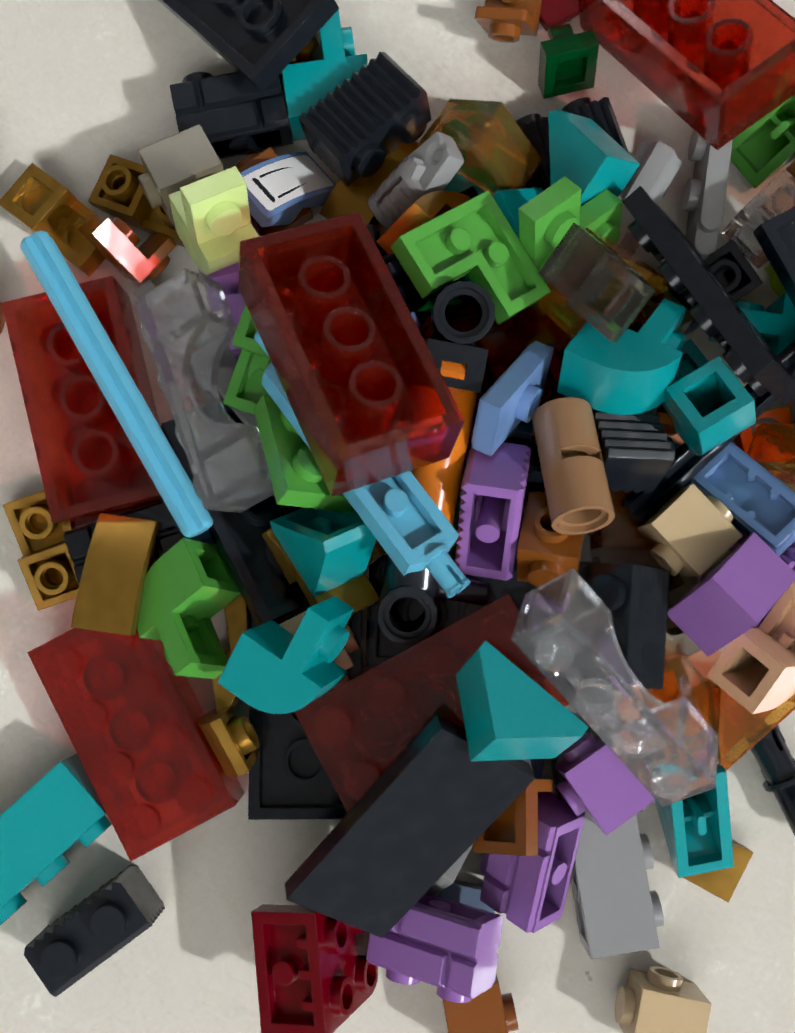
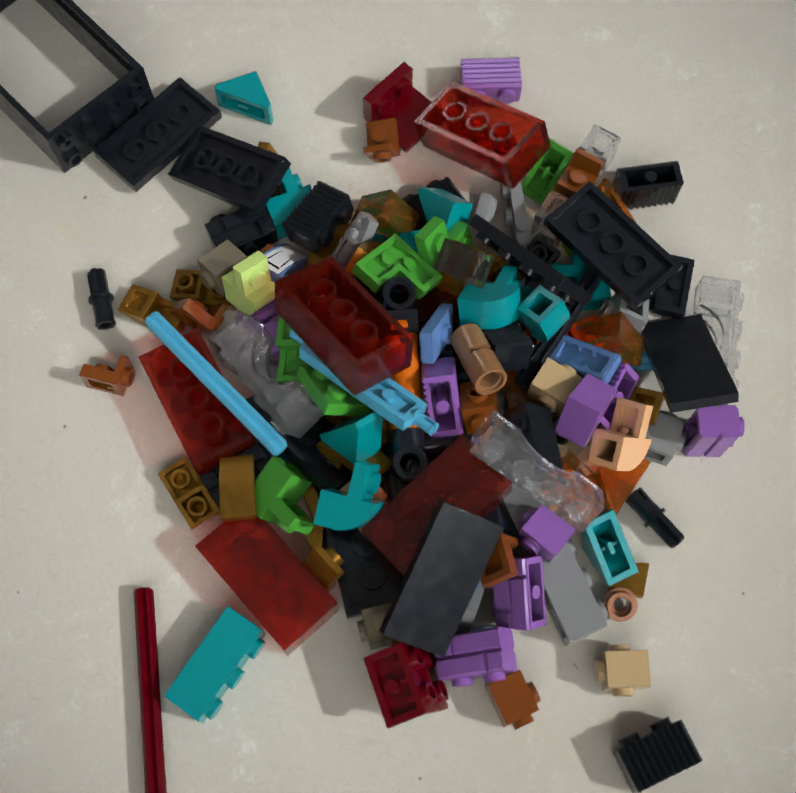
camera: 10 degrees left, 15 degrees down
(94, 930) = (270, 705): black brick -> none
(289, 846) = (371, 624): none -> dark tan brick
(510, 713) = (479, 486): teal slope -> none
(567, 61) = (420, 164): dark green tile -> none
(691, 918) = (626, 612): none -> nougat plate

